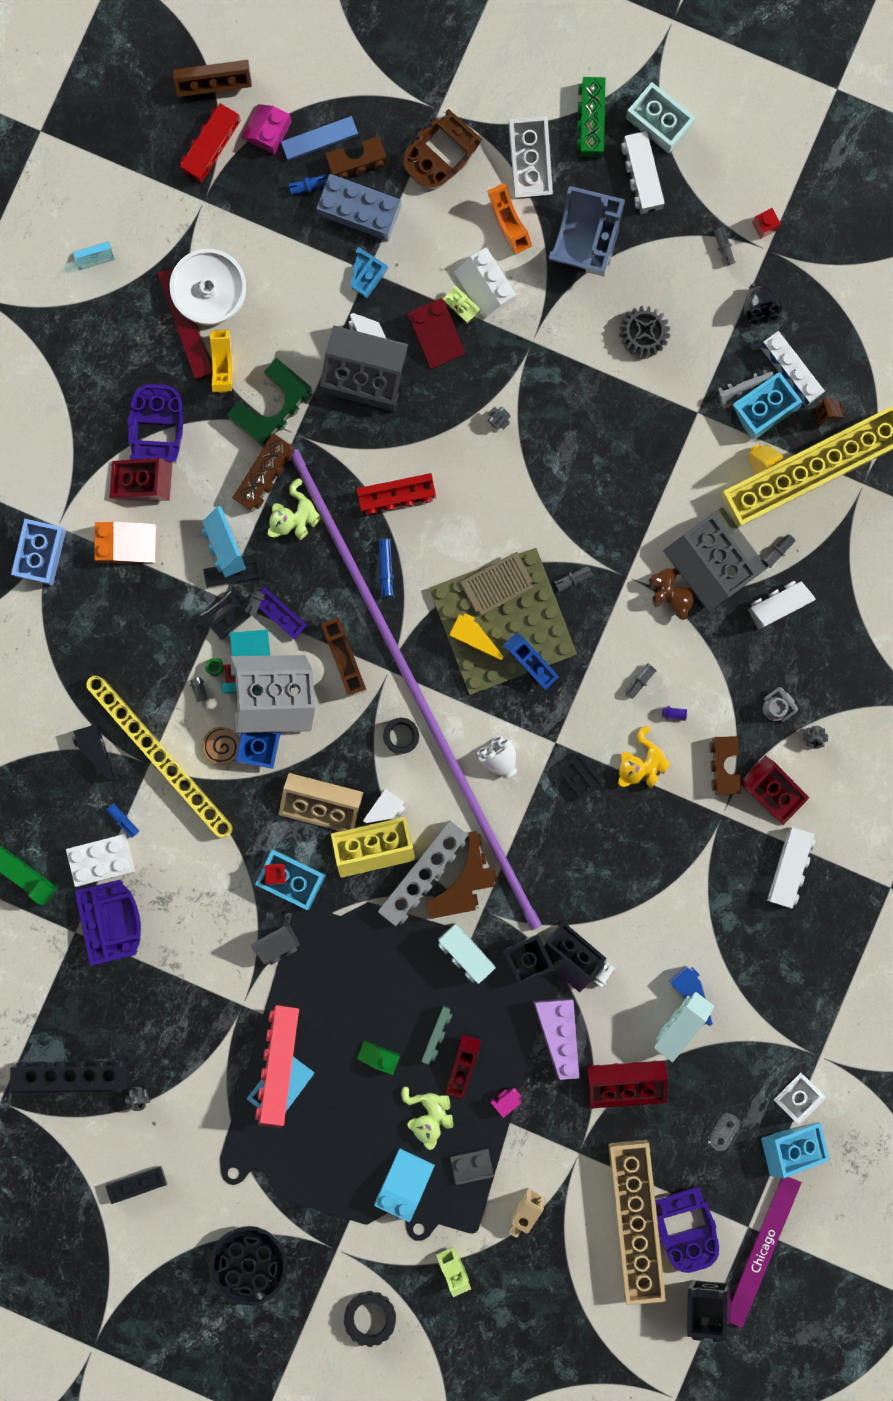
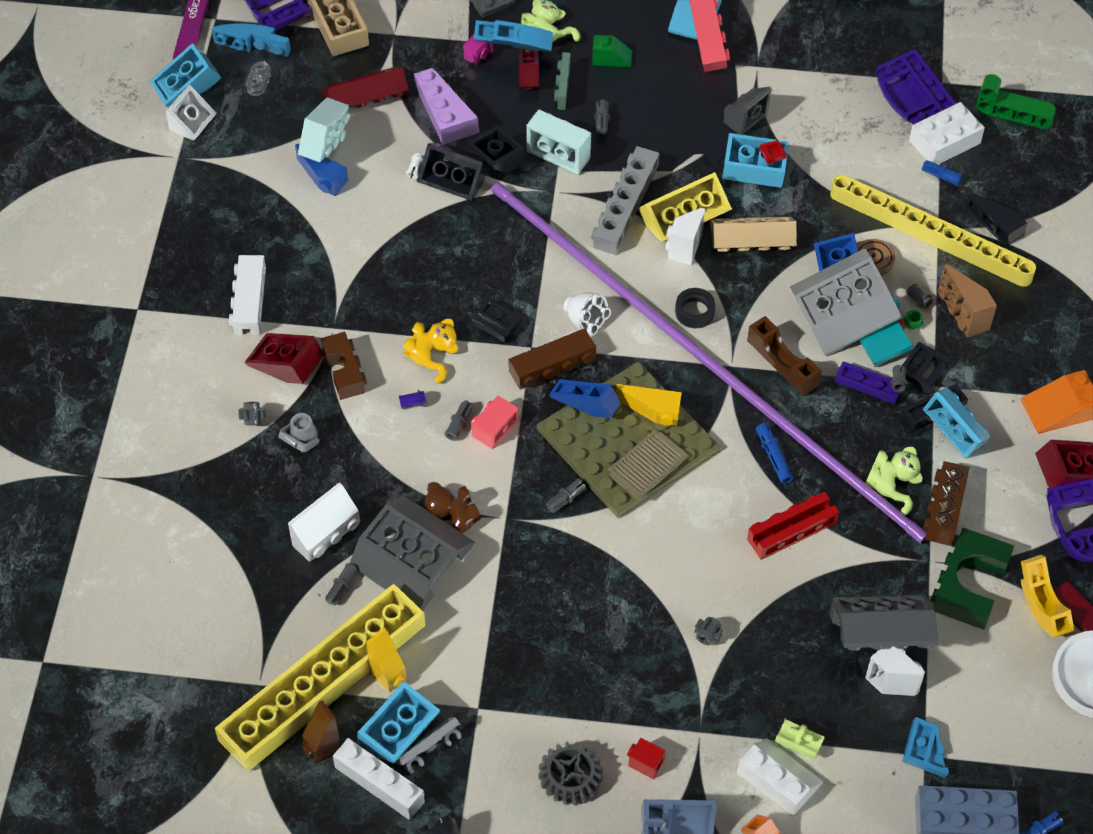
camera: 165 degrees right, 30 degrees down
(162, 657) = (967, 302): none -> medium nougat slope
(413, 980) = (602, 117): none -> dark grey axle
(436, 333) = (818, 703): dark red slope -> none
(472, 1094) = (513, 34): none -> dark azure slope
(473, 877) = (579, 195): reddish brown arch -> none
(543, 717) = (552, 359): none -> reddish brown brick
(583, 327) = (646, 757): none -> red brick
(611, 668) = (494, 421): none -> coral brick
(727, 1186) = (246, 36): none -> dark azure slope

